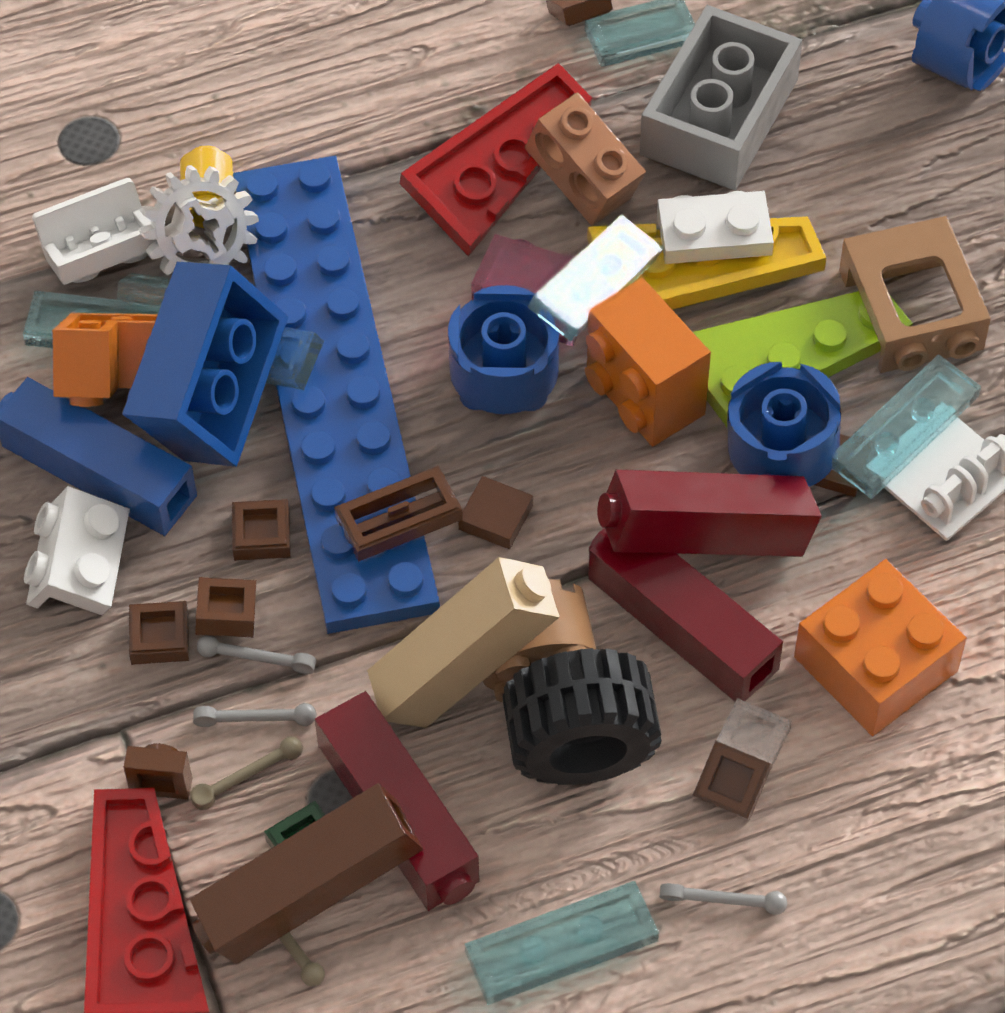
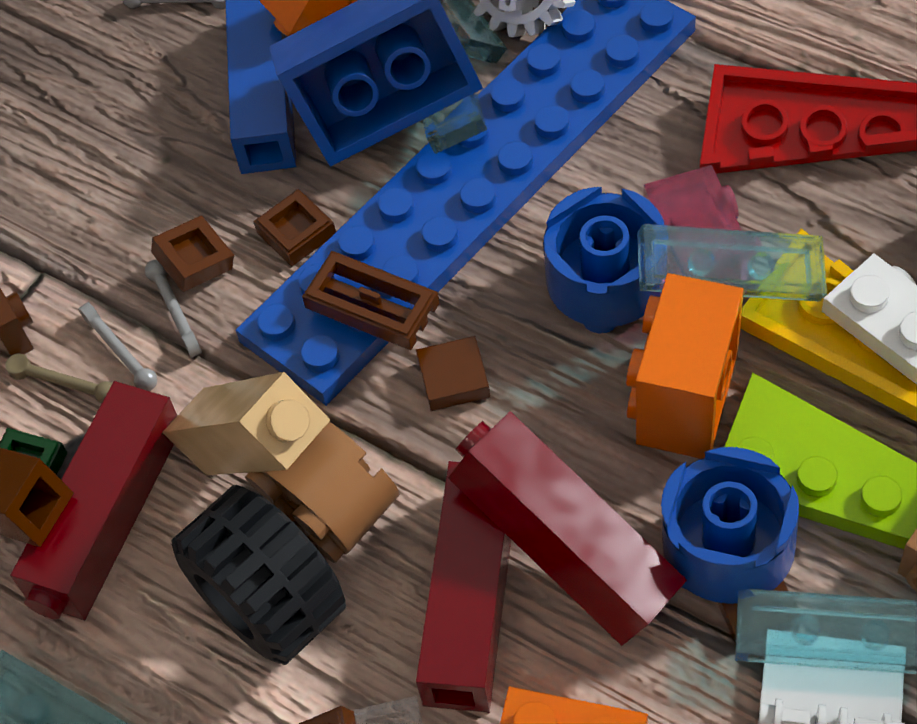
camera: 60 degrees right, 0 degrees up
(77, 551) = (167, 128): white bracket -> none
(158, 632) = (135, 226): reddish brown tile -> none
(584, 159) = (862, 172): nougat brick -> none

